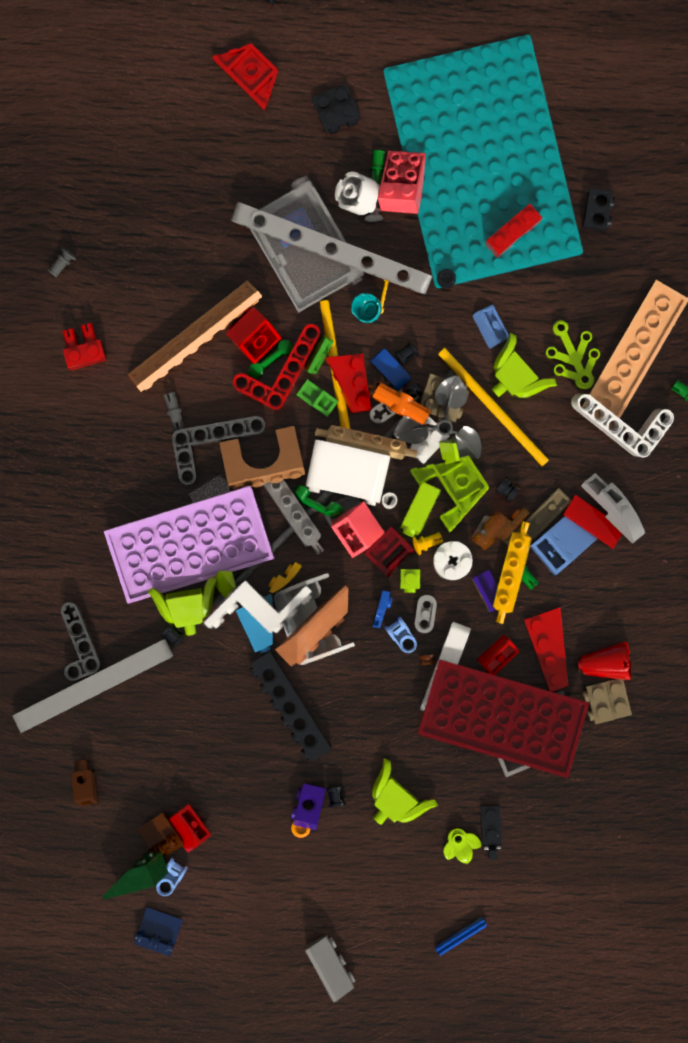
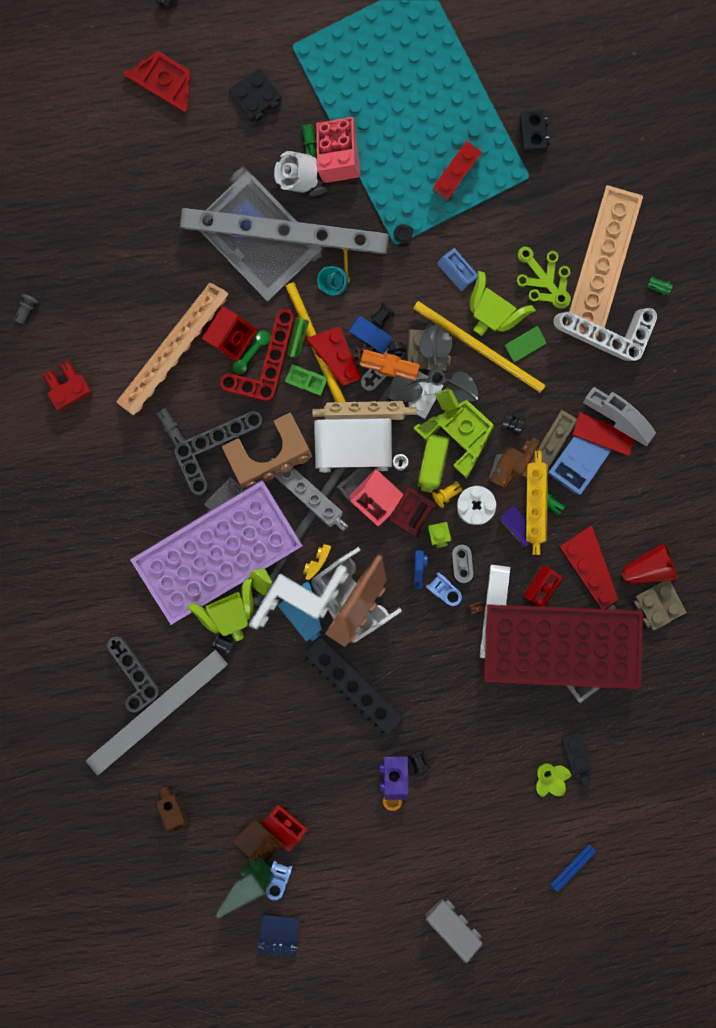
camera: 10 degrees left, 0 degrees up
(332, 510) = (348, 484): green bar -> none
(395, 800) = (478, 752): lime torso -> none
(539, 415) = (525, 344): none -> bright green slope

